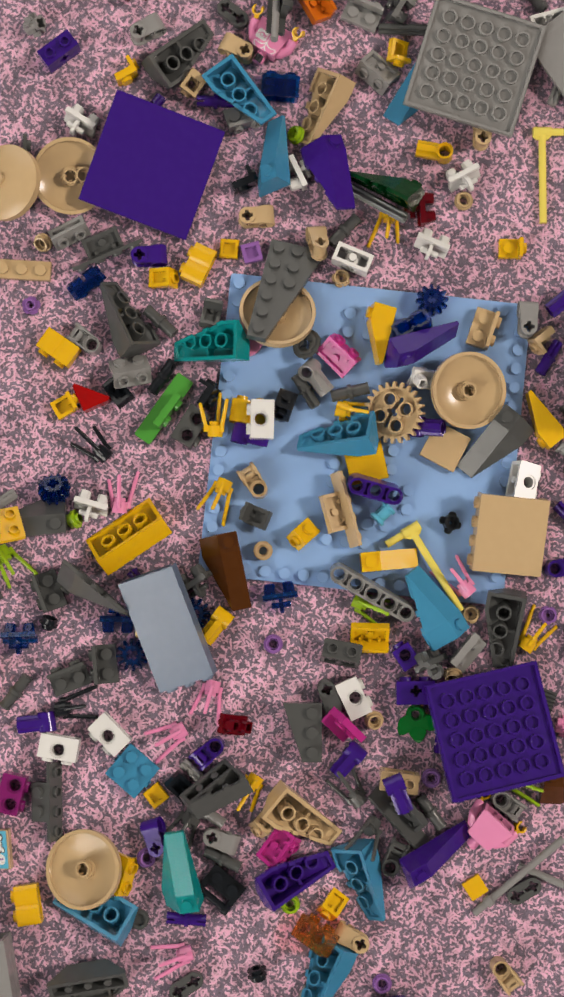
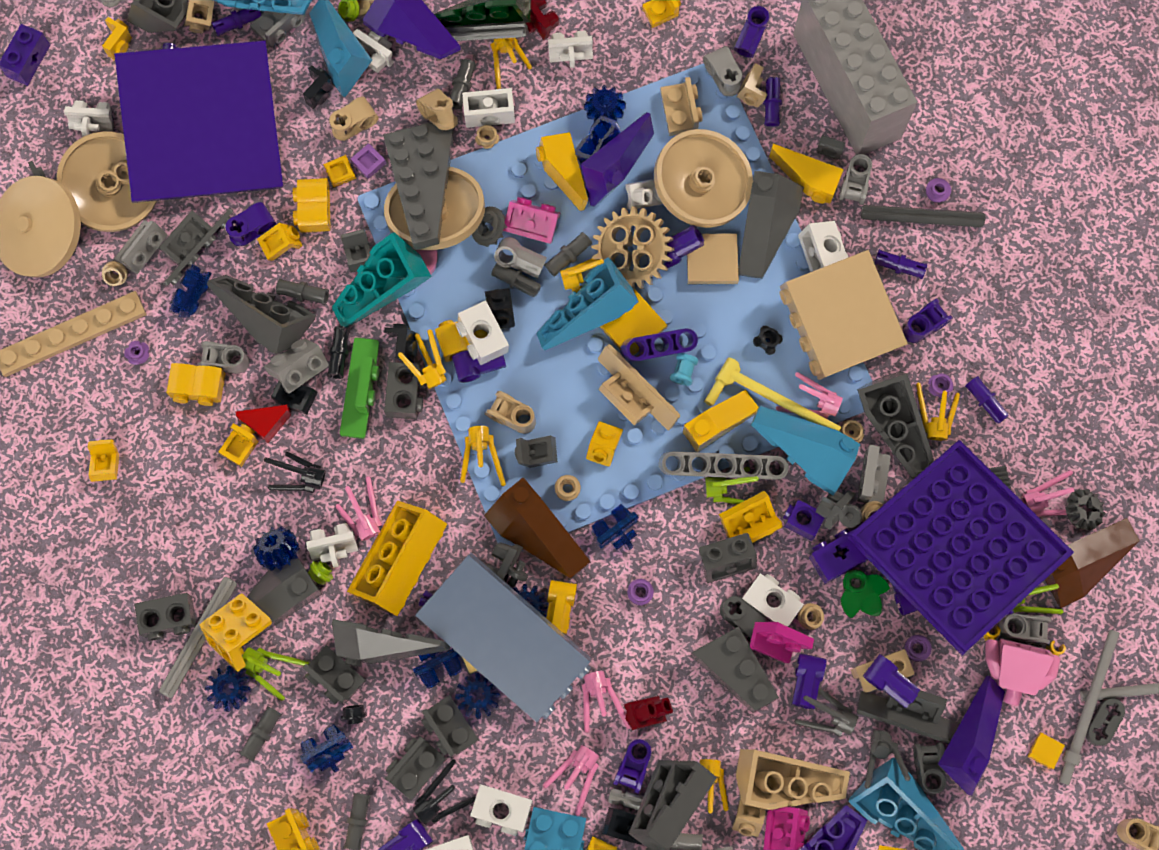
camera: 25 degrees left, 10 degrees down
(430, 811) = (941, 688): dark grey pin -> none

